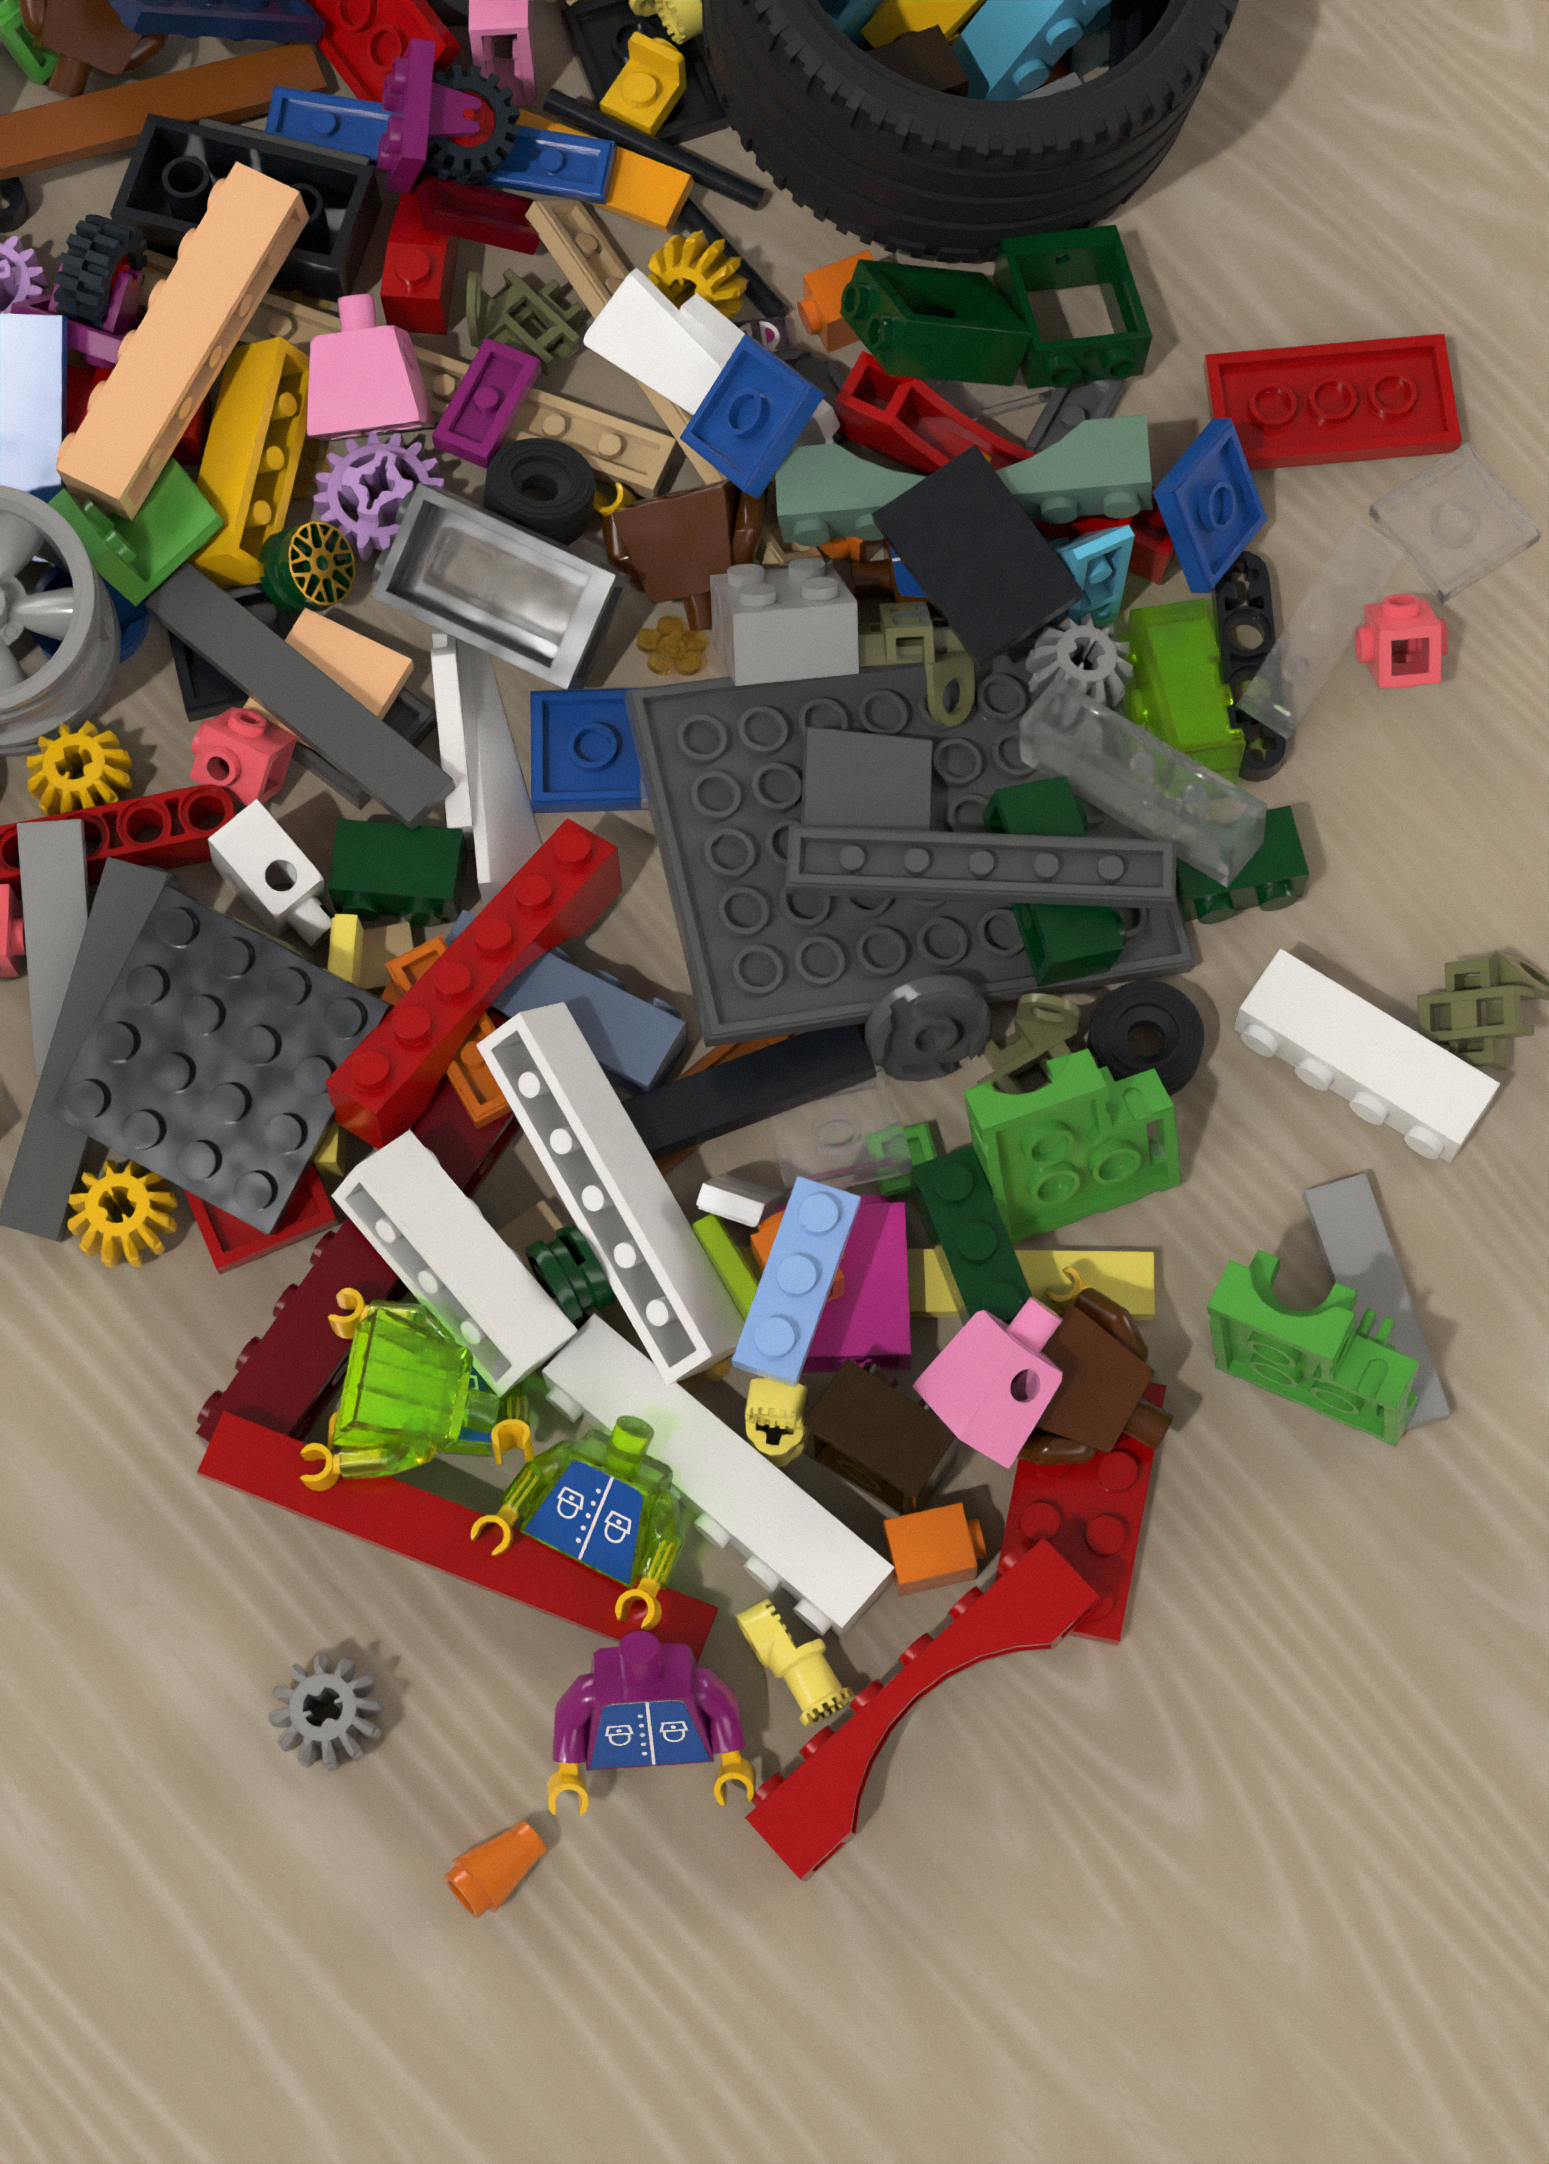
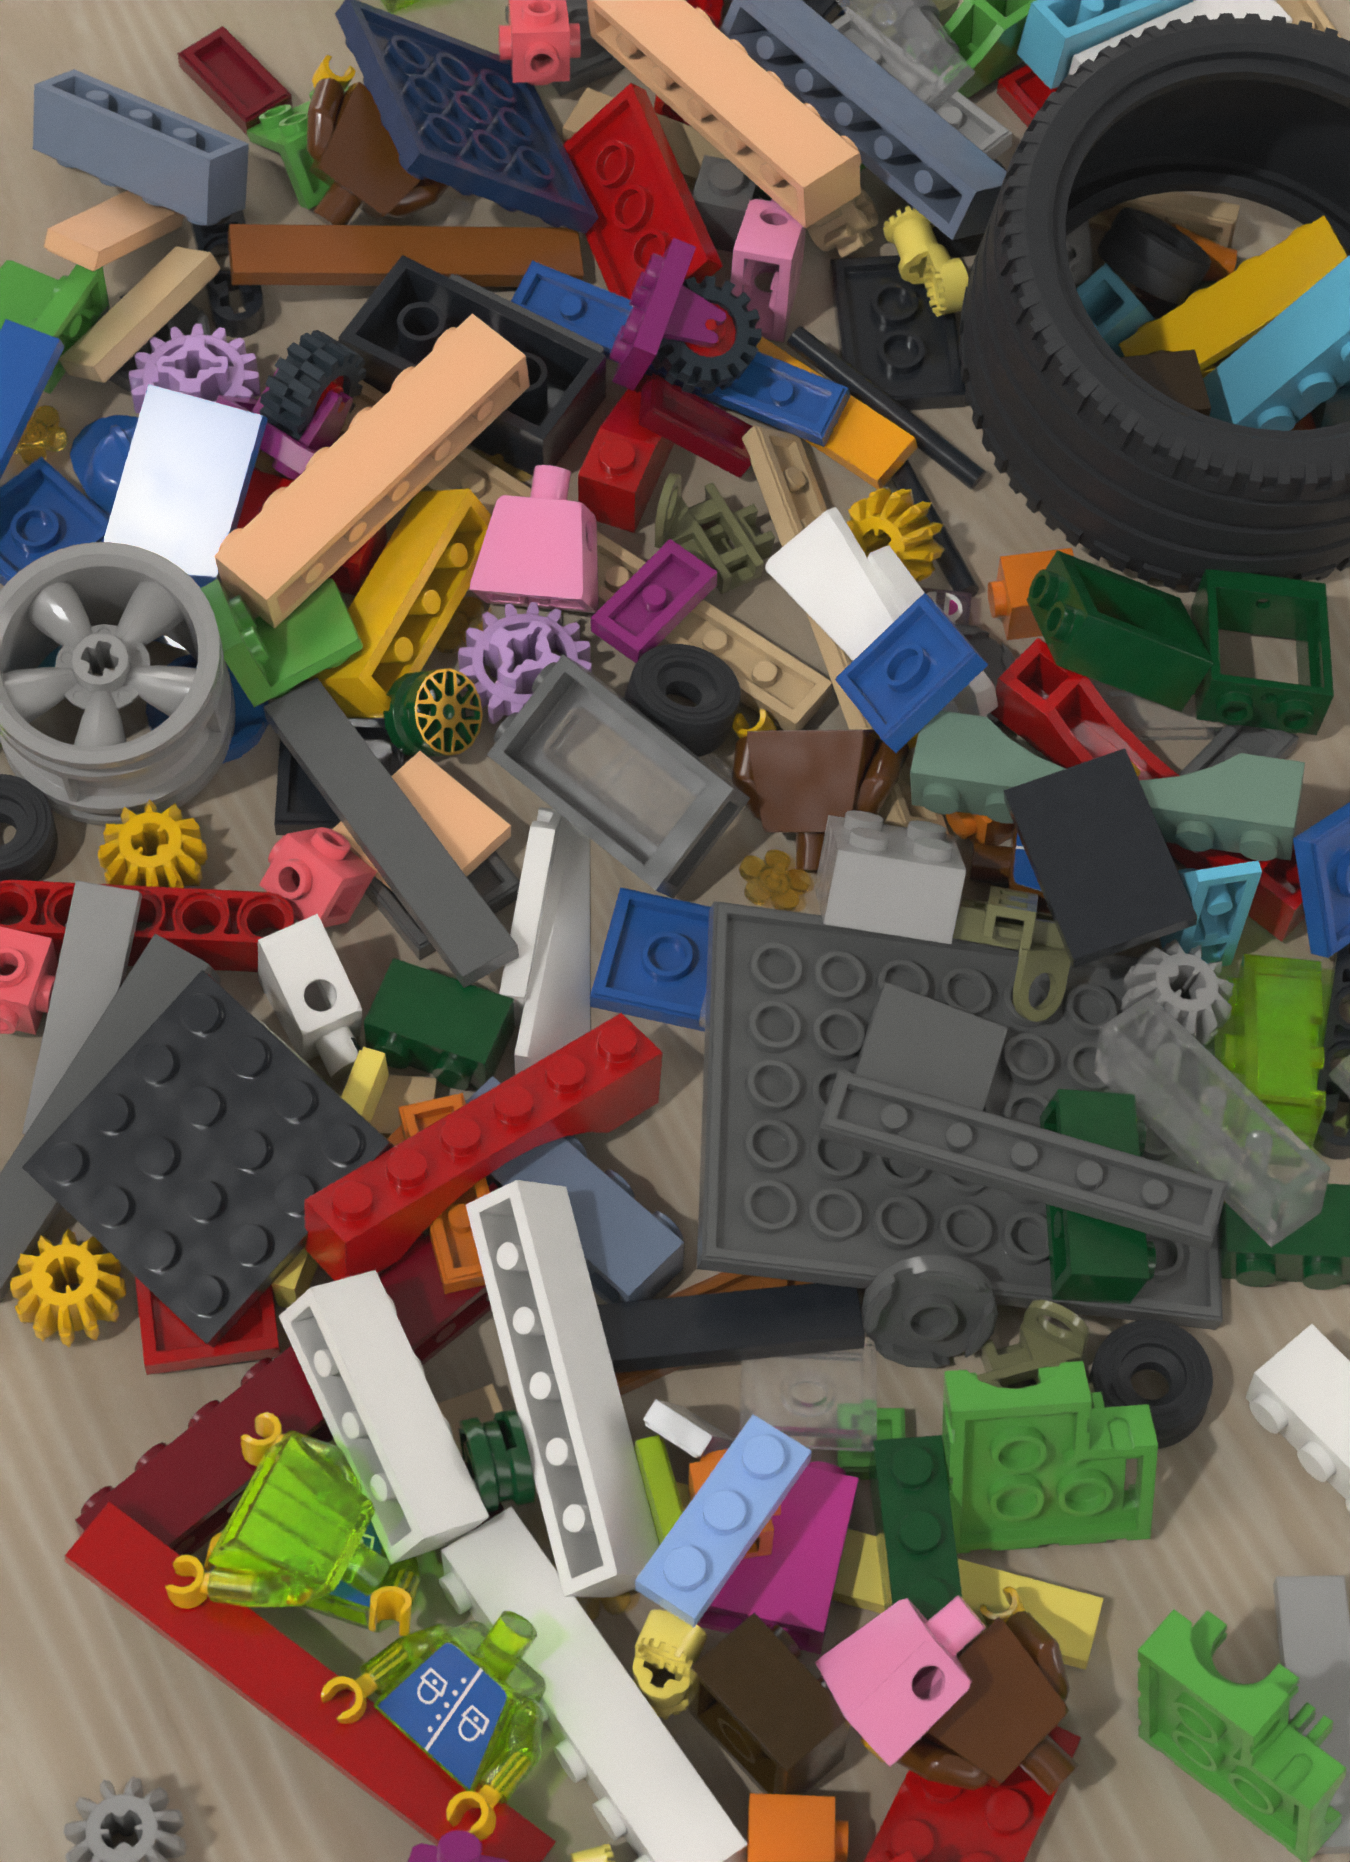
camera: 10 degrees right, 10 degrees down
(647, 84) = (895, 345): yellow bracket -> none

